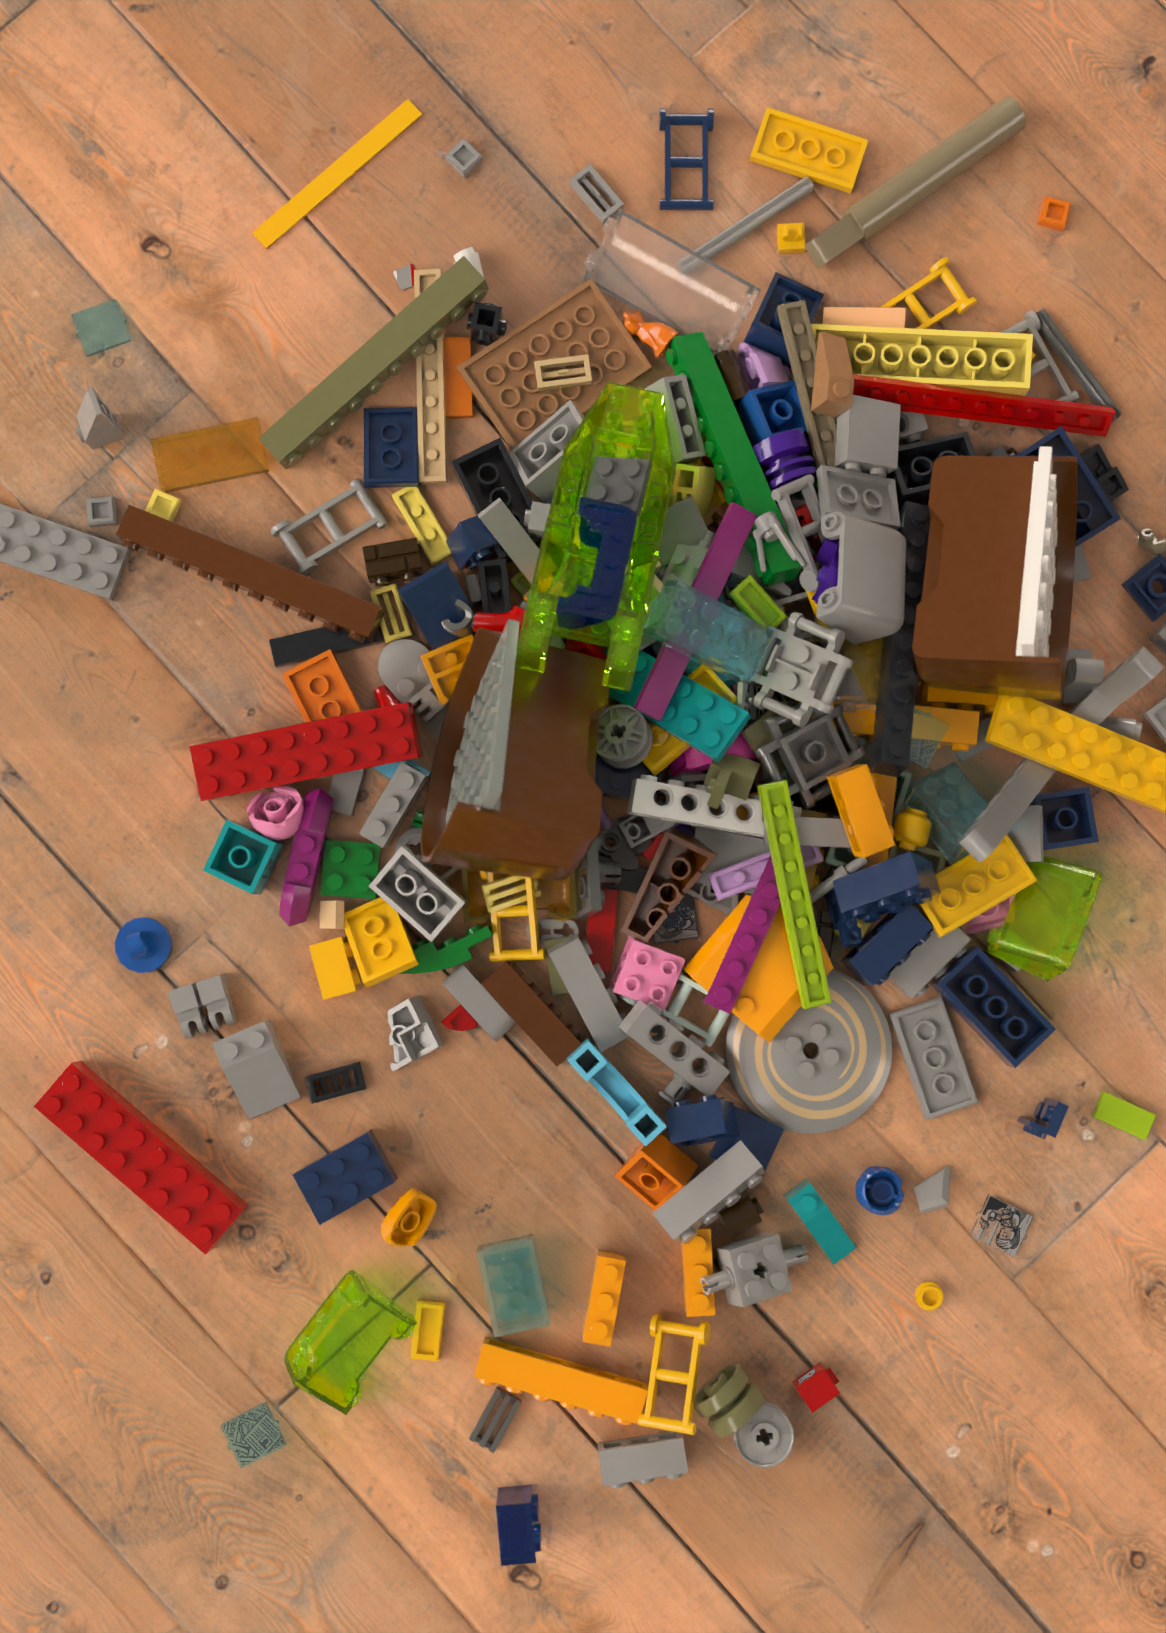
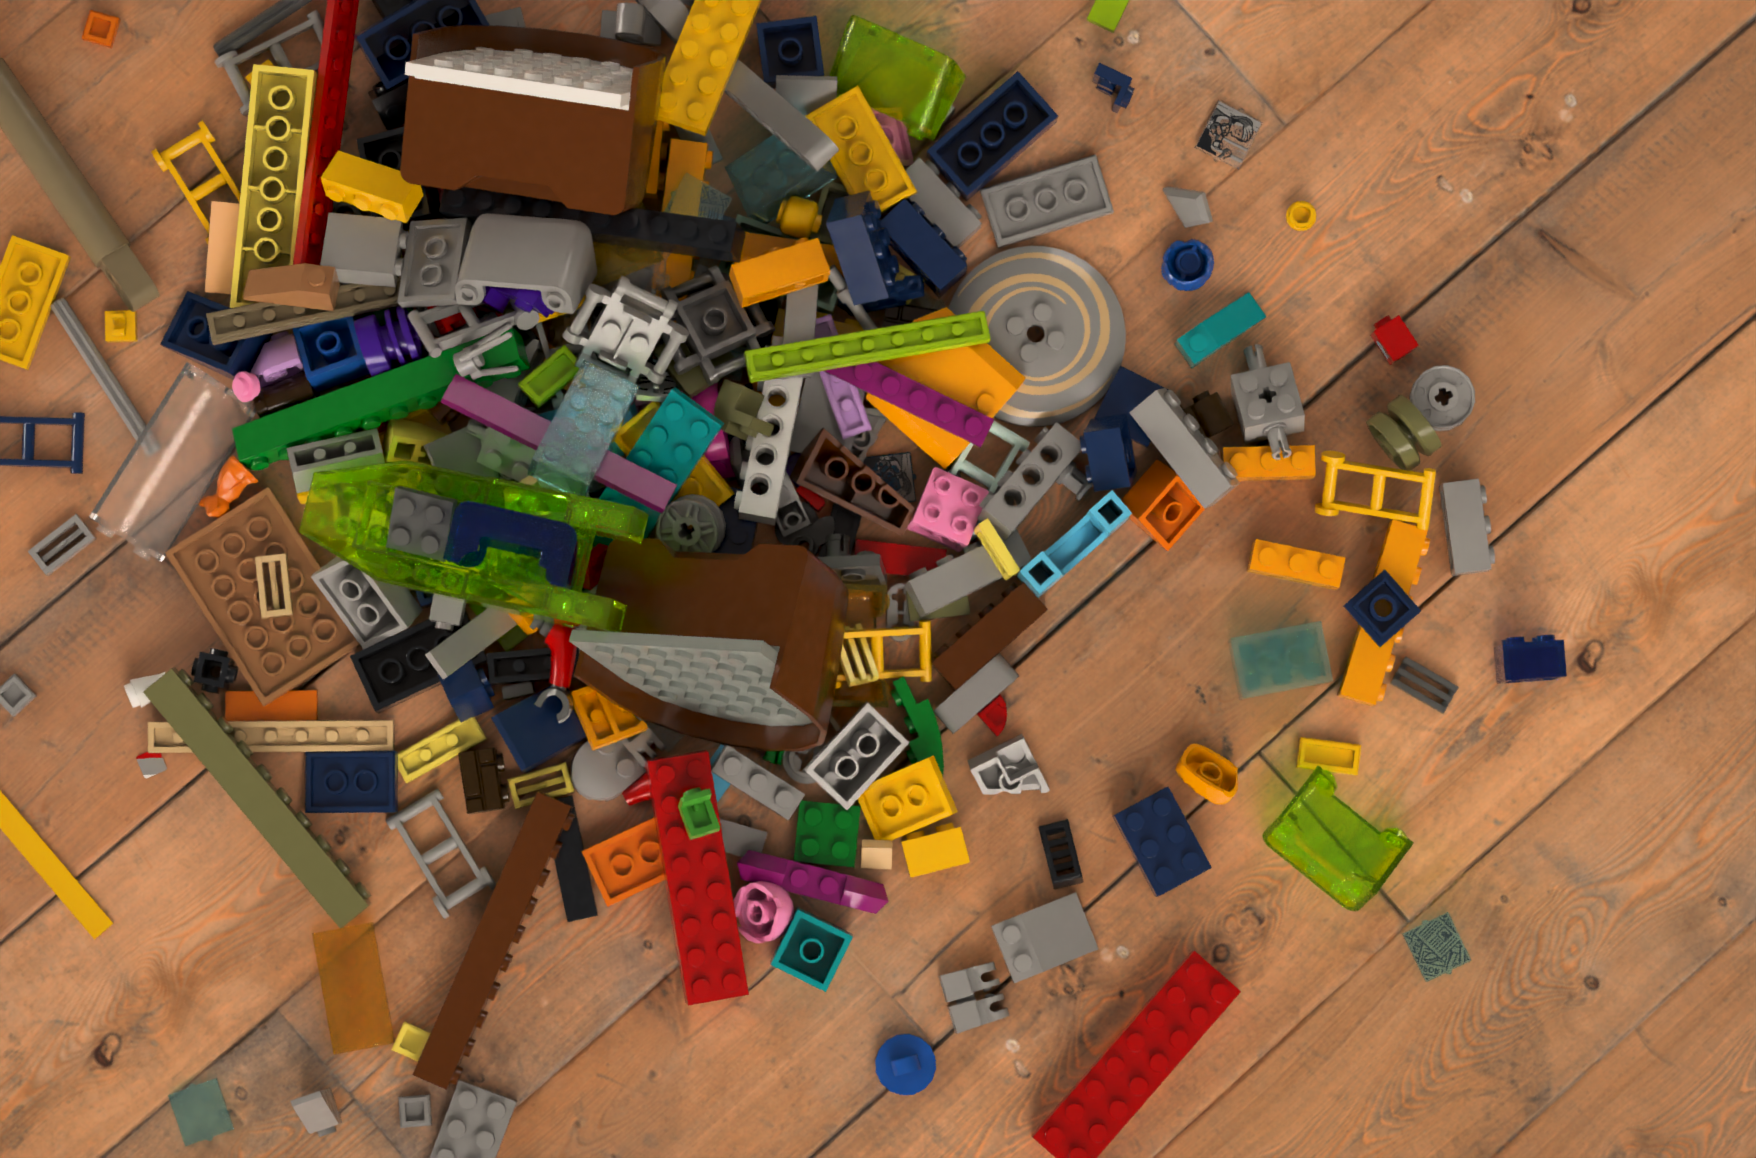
camera: 85 degrees left, 0 degrees up
(358, 748) = (698, 813): none -> bright green bracket
(563, 1365) = (1377, 627): none -> dark blue piece
(609, 1018) = (996, 549): none -> light yellow tile
(740, 340) = (246, 386): none -> bright pink plate
(924, 440) = (370, 187): none -> yellow brick

